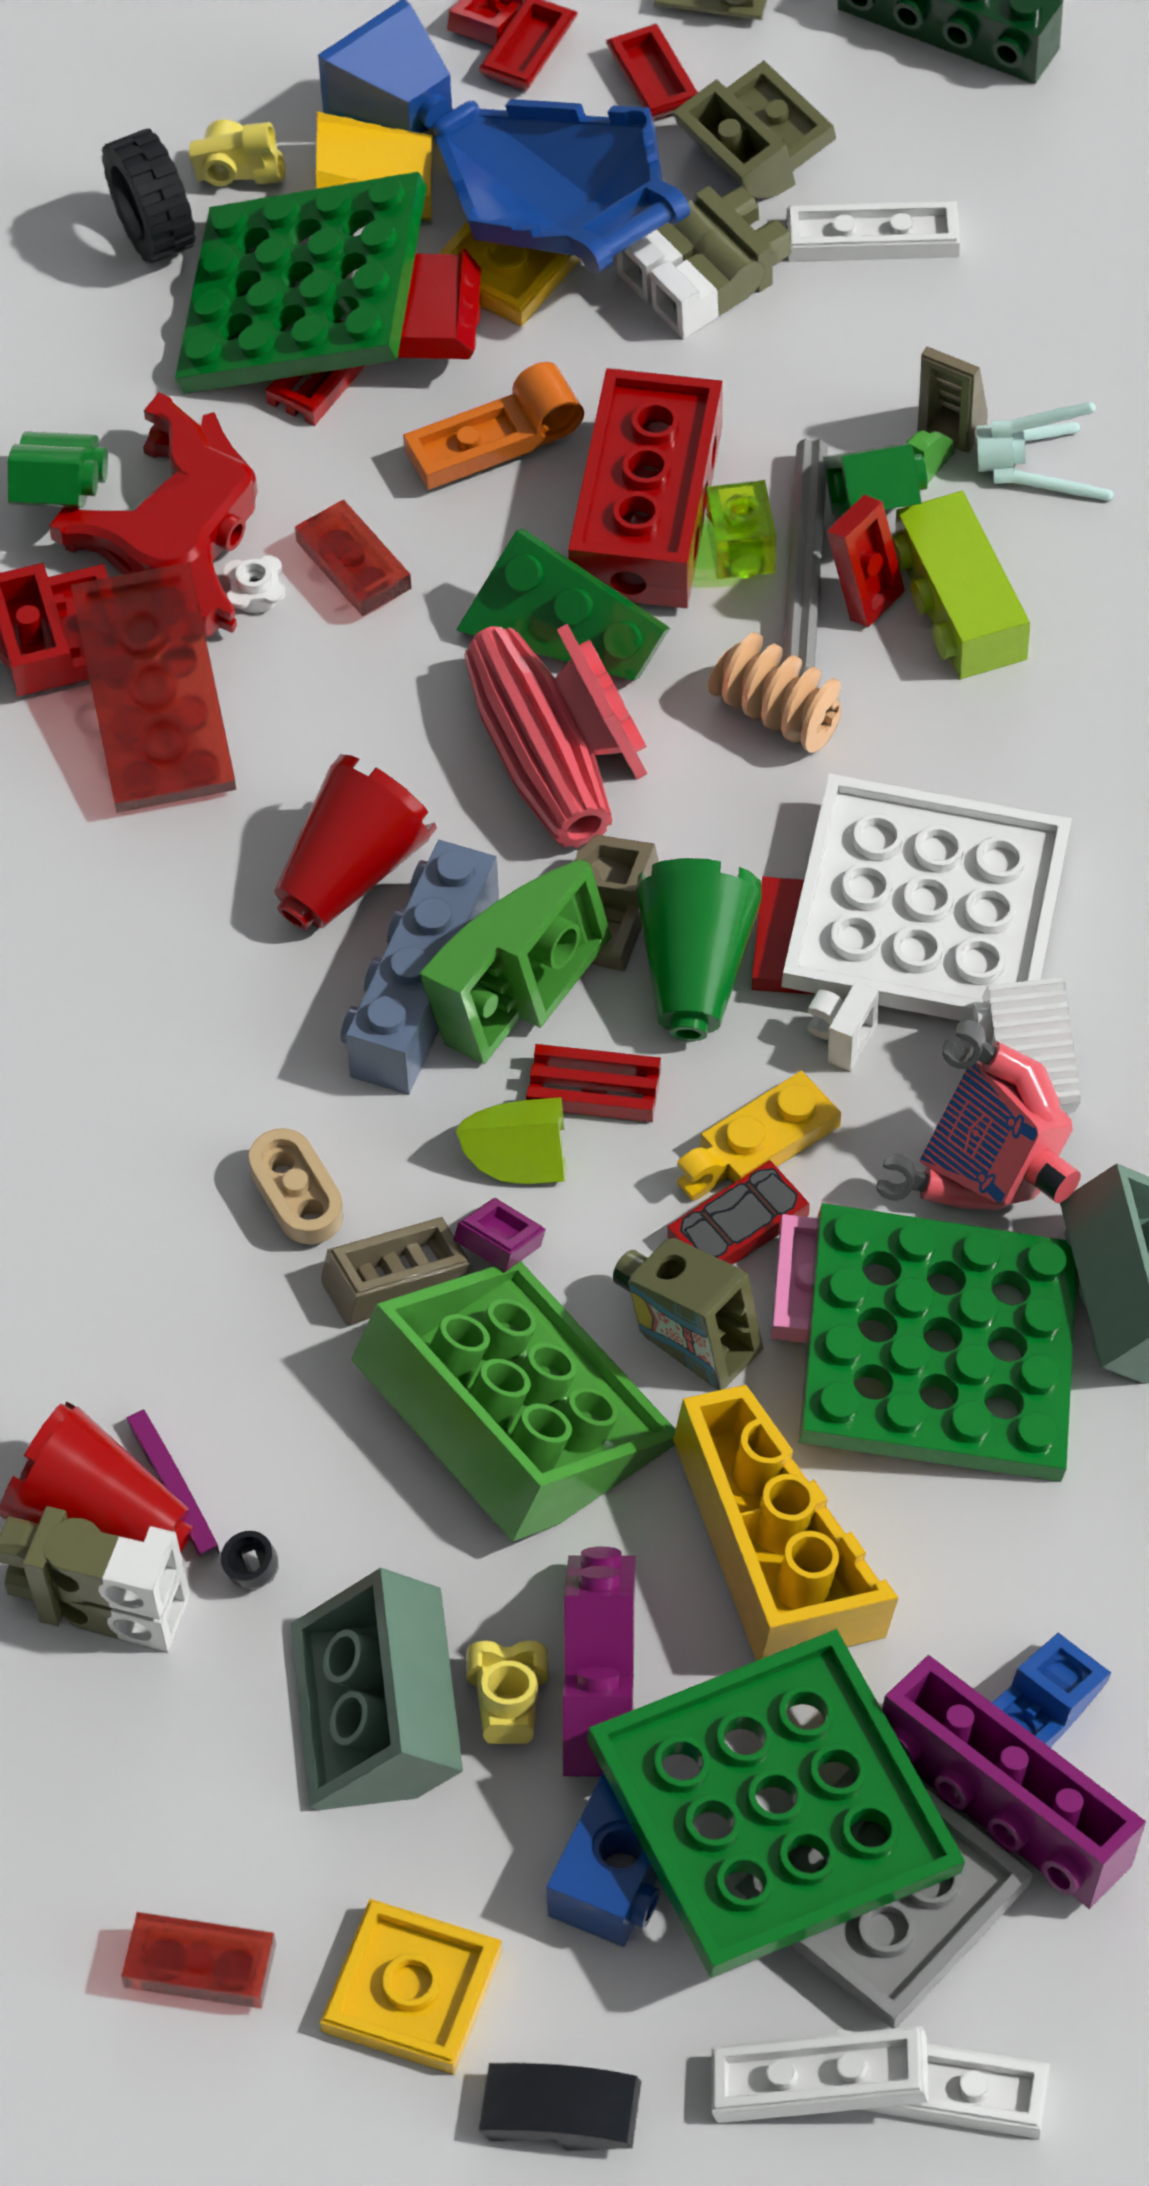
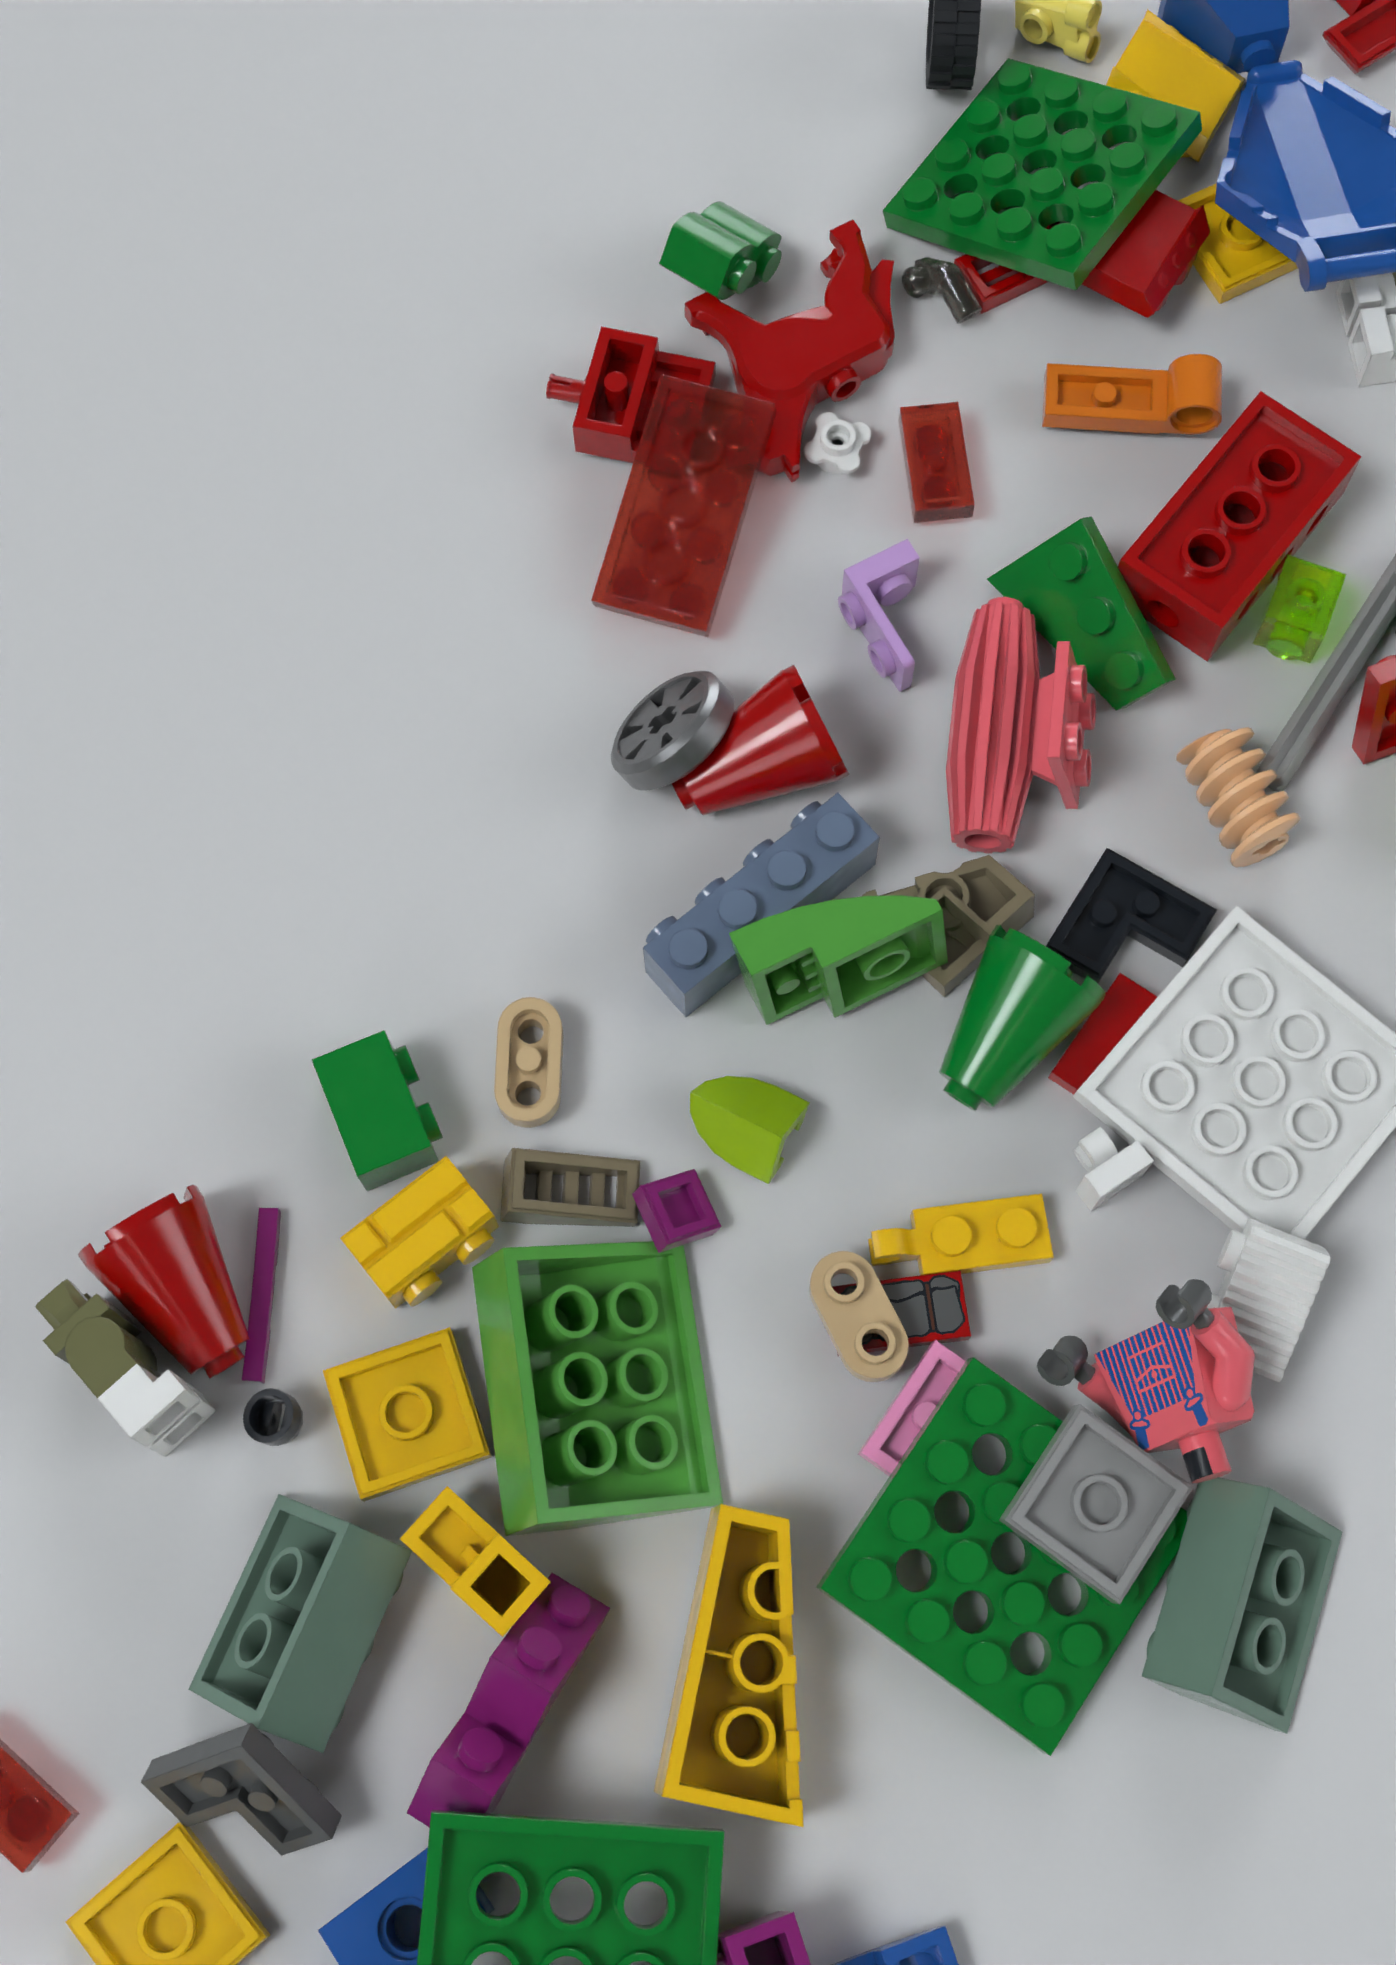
camera: 30 degrees right, 15 degrees up
(185, 1285) = (376, 1110): none -> green brick
(259, 864) = (672, 730): none -> flat silver wheel
(267, 410) = (943, 280): none -> clear smoke arm
(288, 1358) = (422, 1234): none -> yellow brick
(363, 694) = (884, 581): none -> lavender bracket
(363, 1504) = (406, 1414): none -> yellow tile
(408, 1810) = (247, 1776): none -> dark grey plate
(507, 1687) = (422, 1667): light yellow plate -> none
(511, 1572) = (475, 1561): none -> yellow brick
(596, 1074) = (864, 1079): red tile -> none
(693, 1308) = (796, 1391): olive torso -> none
(706, 1225) = (858, 1314): none -> tan plate
(736, 821) = (1124, 902): none -> black tile
(988, 1257) = (1096, 1504): none -> light grey tile

